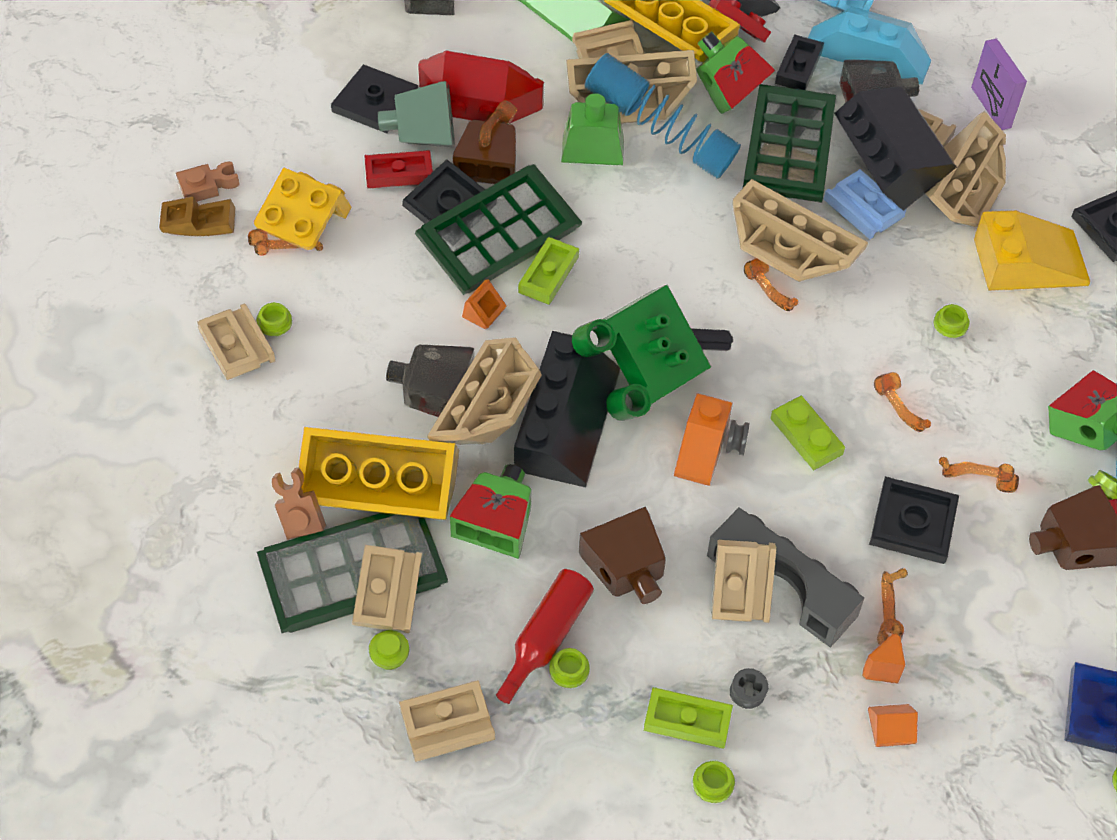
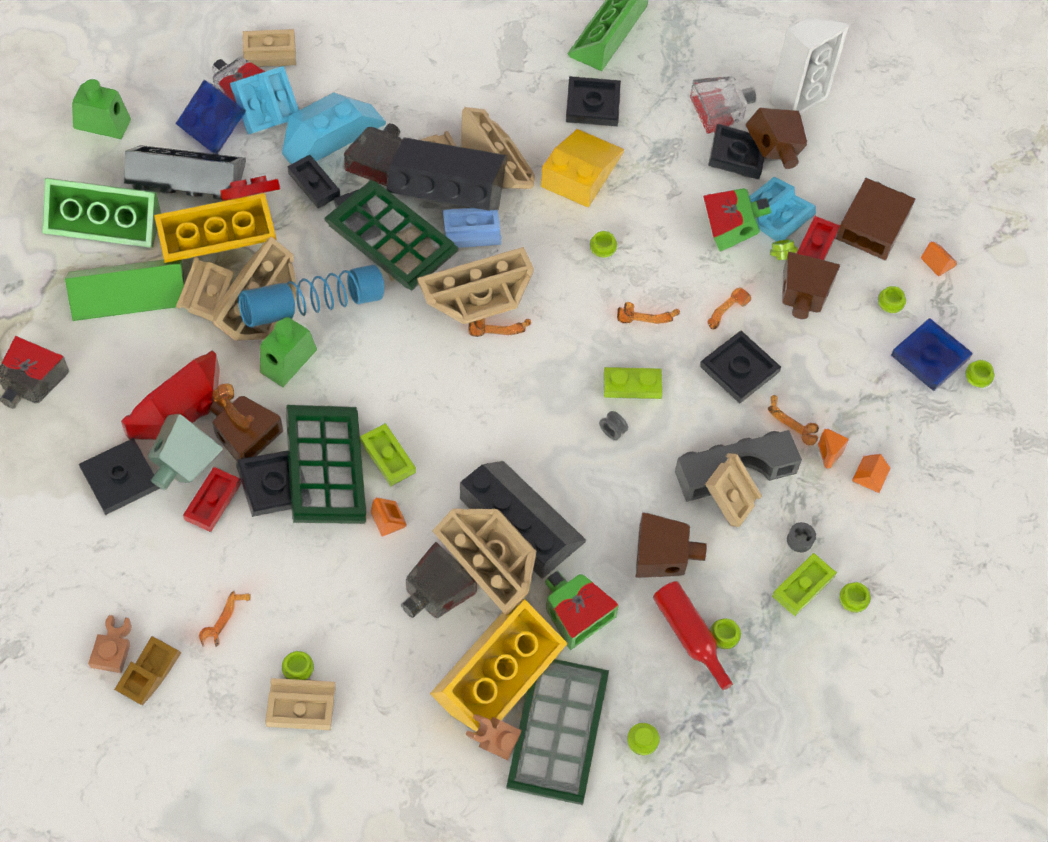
camera: 60 degrees left, 5 degrees up
(300, 208) = (206, 589): yellow bracket -> none
(386, 589) = (602, 712): tan plate -> none
(447, 720) = (721, 731): tan plate -> none
(651, 348) = (519, 430): green piece -> none
(703, 439) = (602, 446): orange slope -> none
(730, 70) = (301, 227): torso -> none
(998, 84) = (437, 82): medium lavender tile -> none

